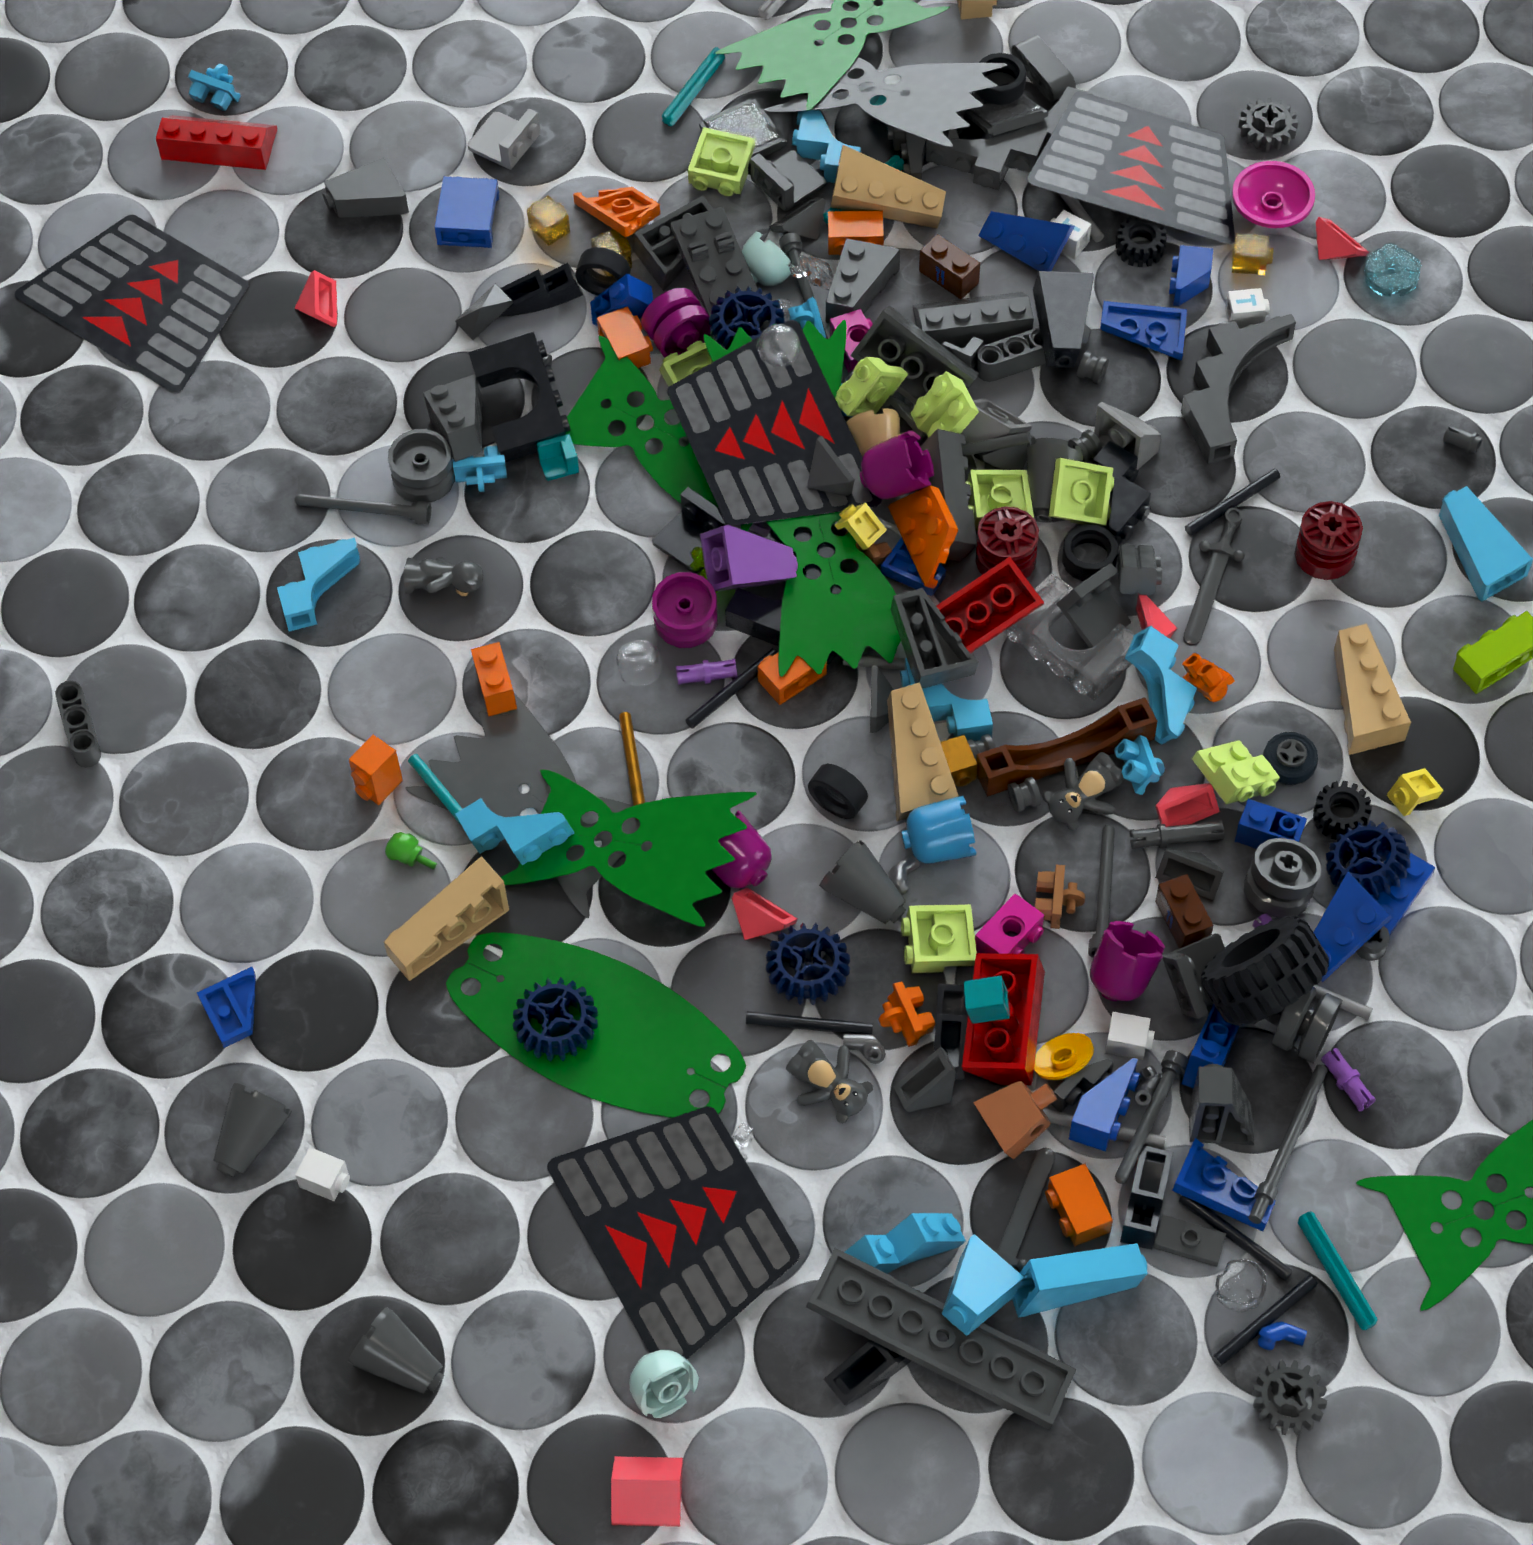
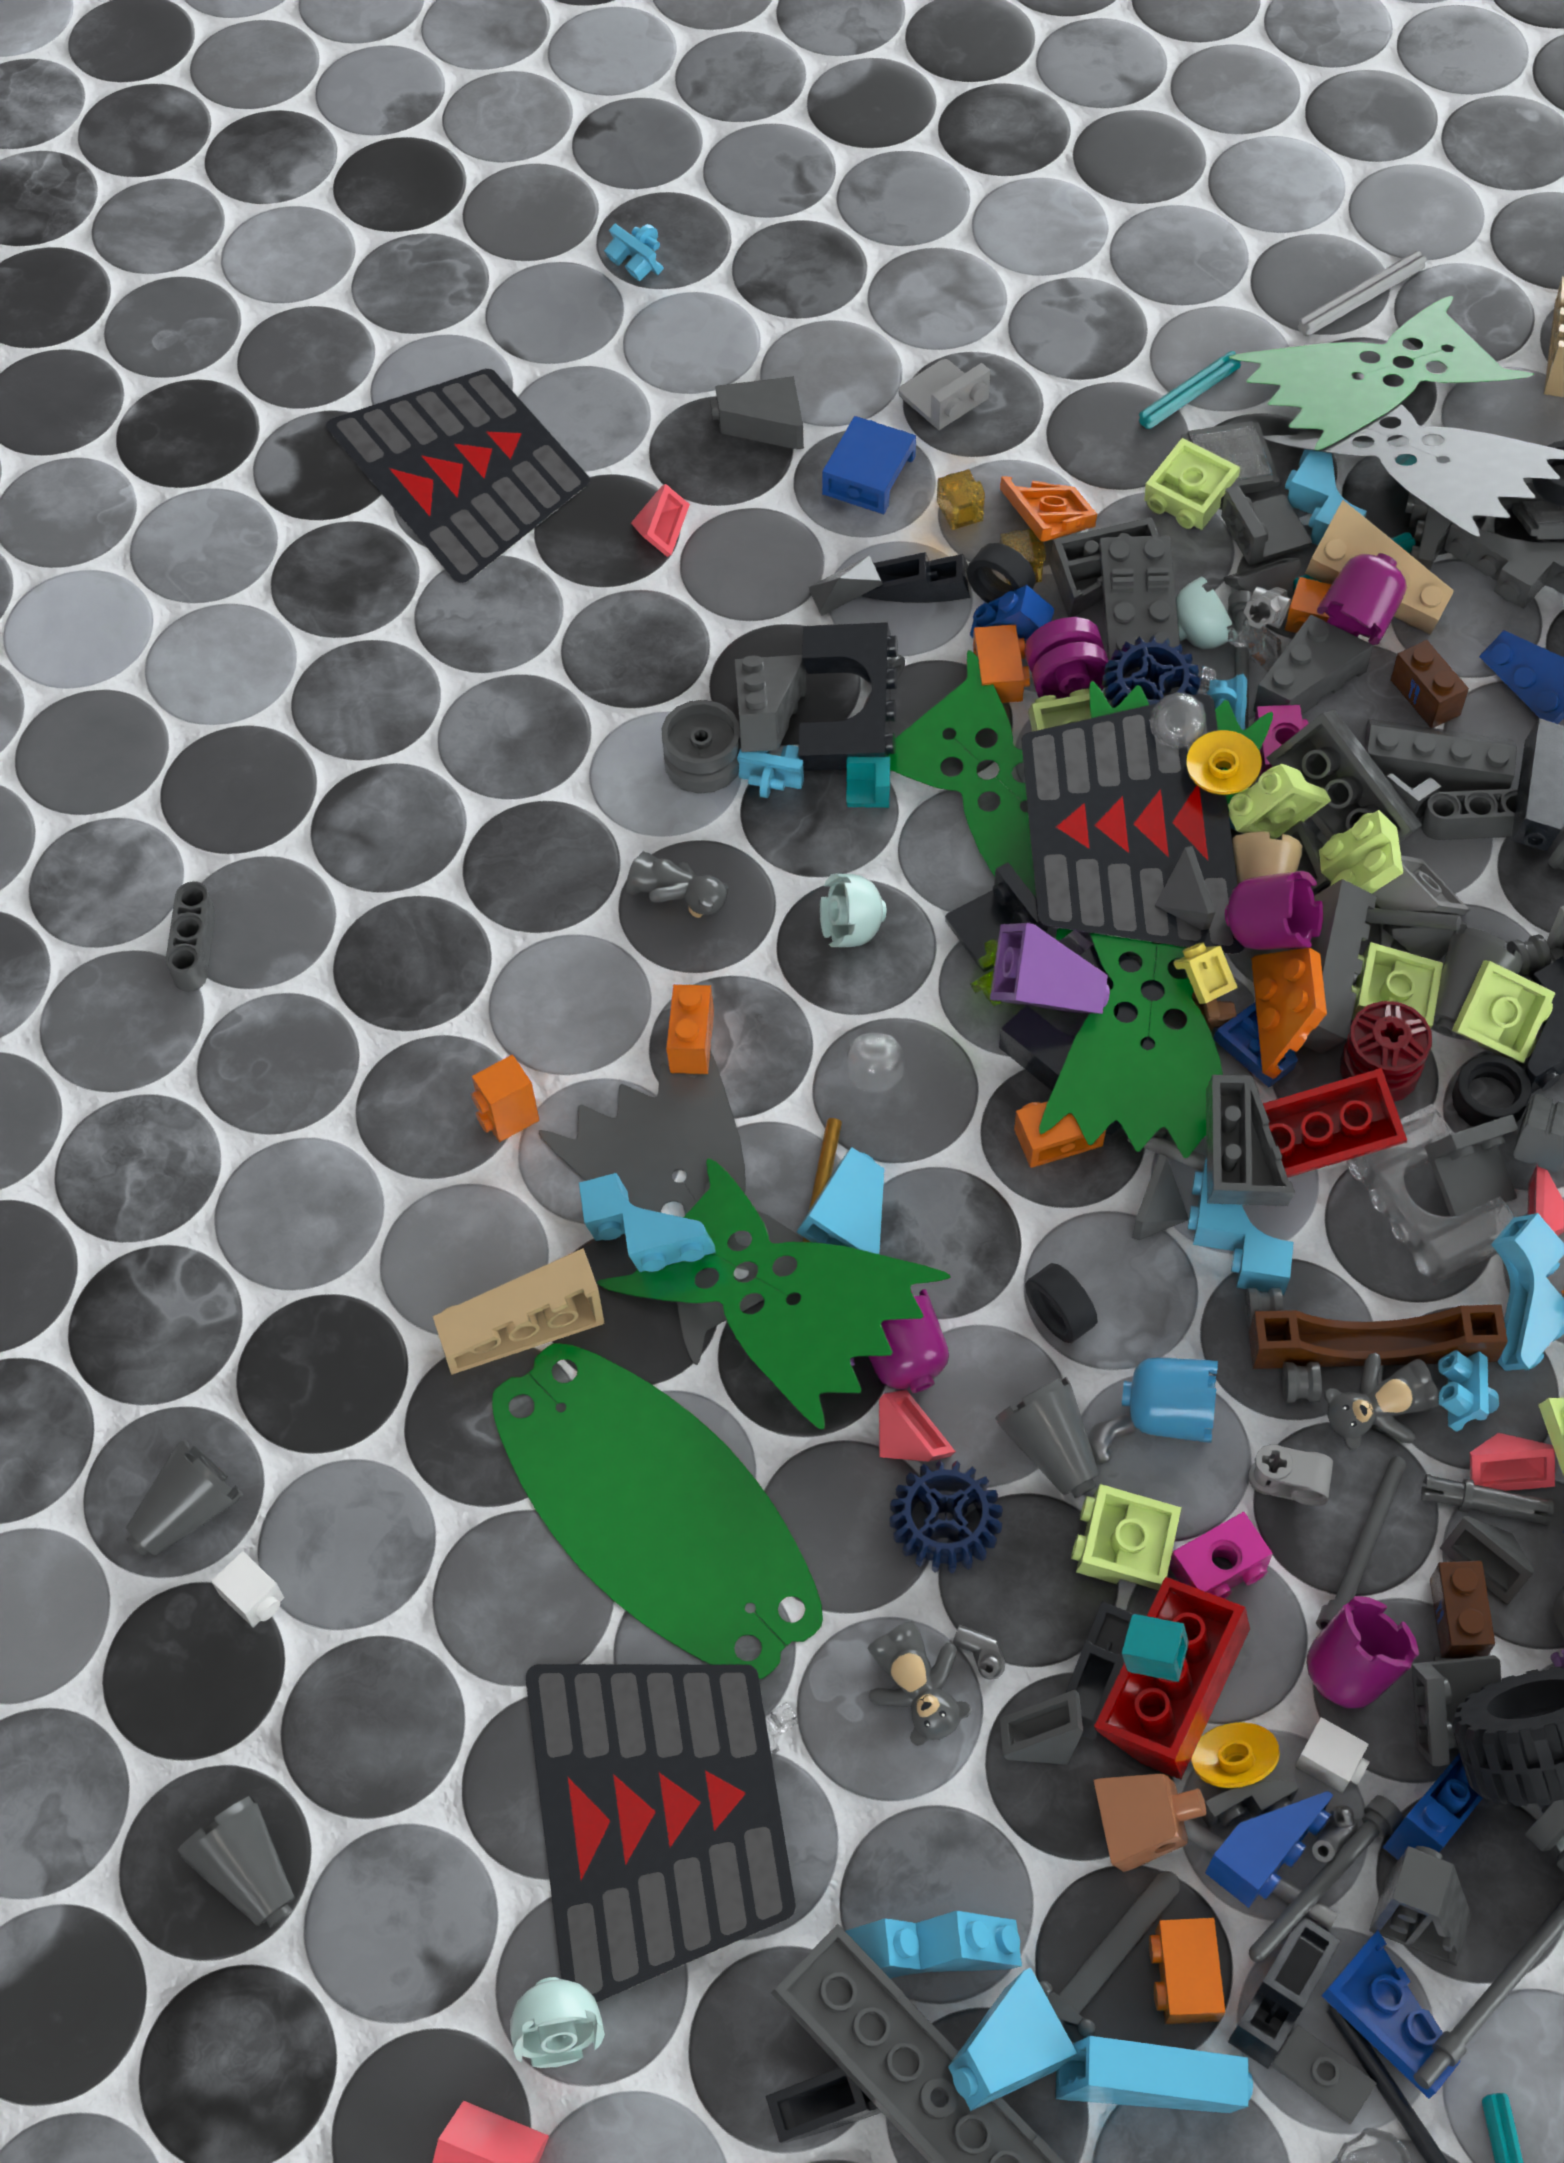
camera: 20 degrees right, 0 degrees up
(215, 141) = (613, 311): red slope -> none
(231, 1006) = (227, 1337): blue wing -> none
(321, 570) = (537, 837): medium azure arch -> none
(406, 850) = (508, 1209): bright green piece -> none
(419, 511) = (680, 800): dark grey piece -> none
(435, 785) = (573, 1137): teal bar -> none
(559, 998) = (623, 1460): dark blue gear -> none
(581, 557) = (851, 910): none -> light aqua cylinder
(659, 769) = (848, 1206): none -> medium azure slope
(685, 610) = (952, 1013): magenta wheel -> none
(706, 671) = (953, 1098): medium lavender pin -> none
(727, 692) = (968, 1132): black bar -> none
(808, 1023) = (921, 1596): black bar -> none
(813, 241) = (1267, 607): none -> light grey piece
(822, 358) = (1228, 751): none -> yellow dish
(883, 214) = (1365, 596): none -> magenta cylinder
(901, 1013) = (1042, 1626): orange hips -> none
(917, 753) = (1178, 1287): tan wedge -> none
(960, 760) = (1227, 1311): pearl gold brick -> none
(1037, 857) = (1294, 1474): none -> light grey piece
(1054, 883) = (1299, 1512): medium nougat hips -> none

